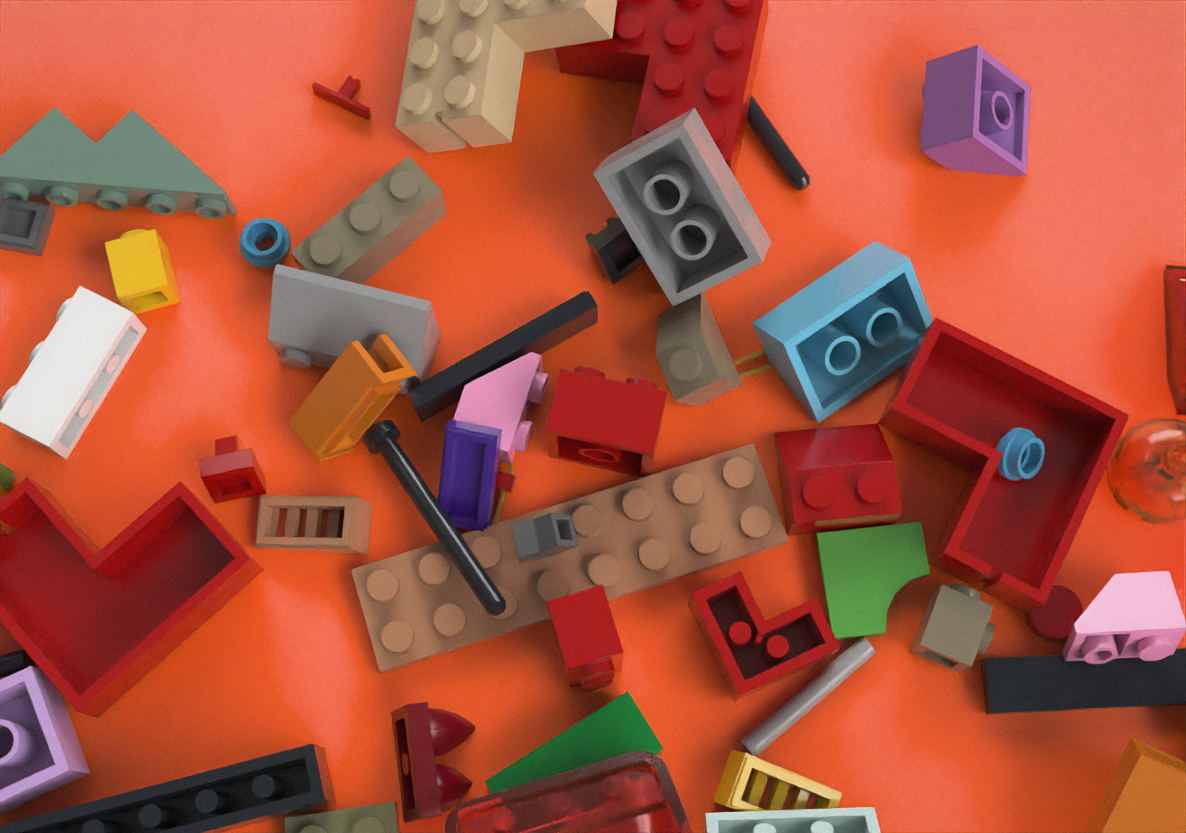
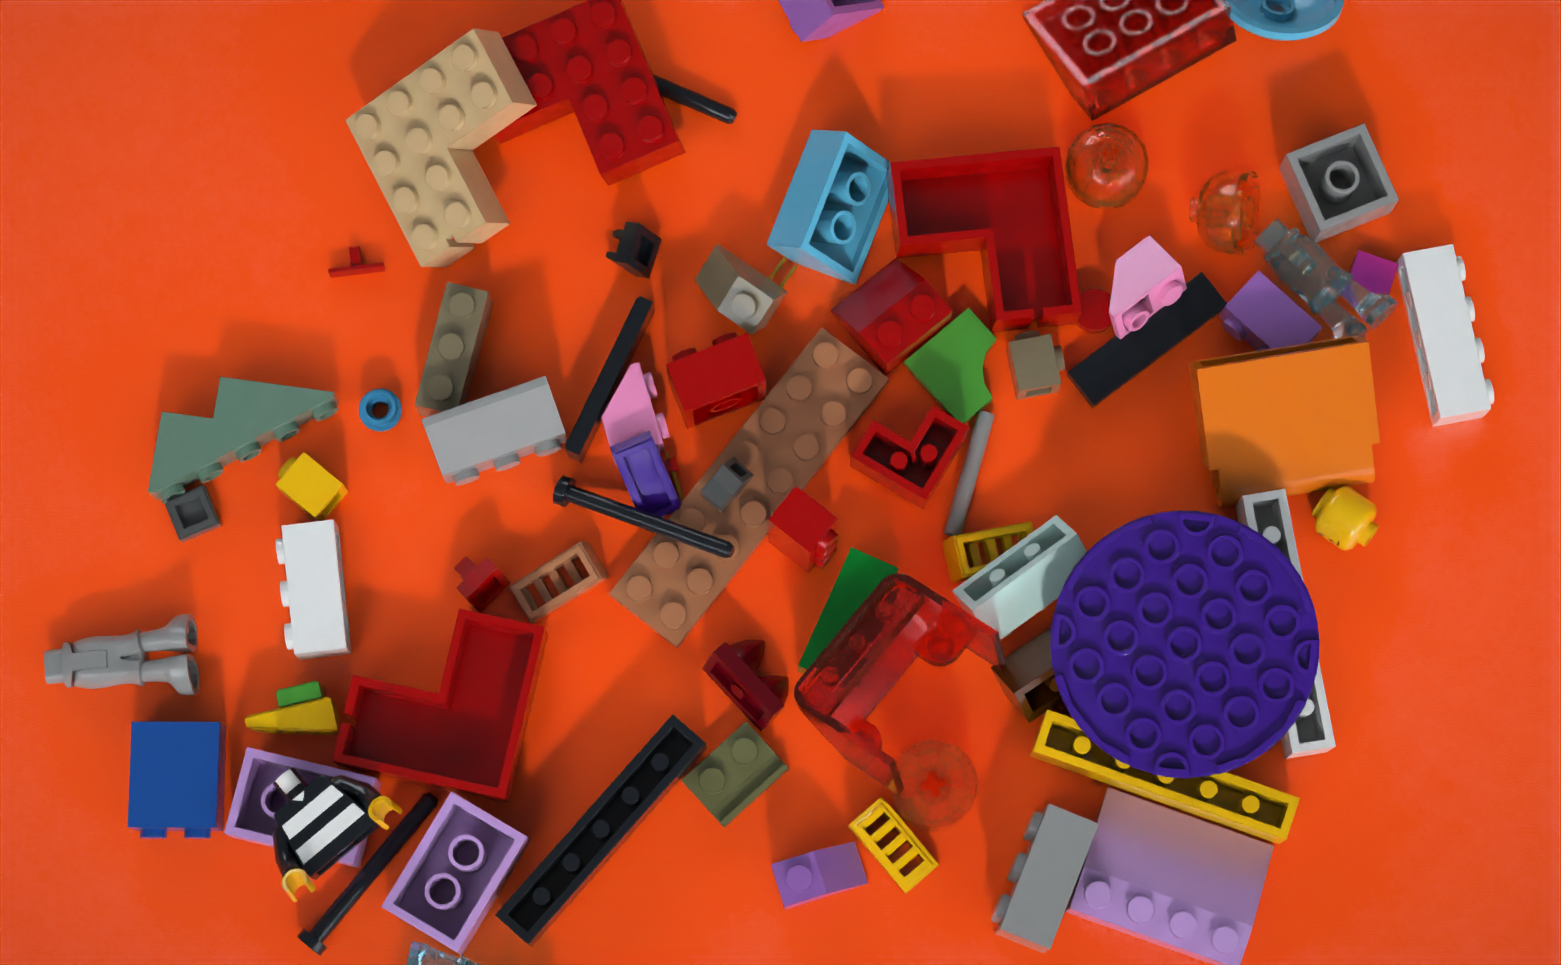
camera: 35 degrees left, 5 degrees up
(350, 398) = (531, 477): orange window -> none
(683, 208) = (669, 196): light grey brick -> none
(1021, 454) = (1005, 218): dark azure plate -> none

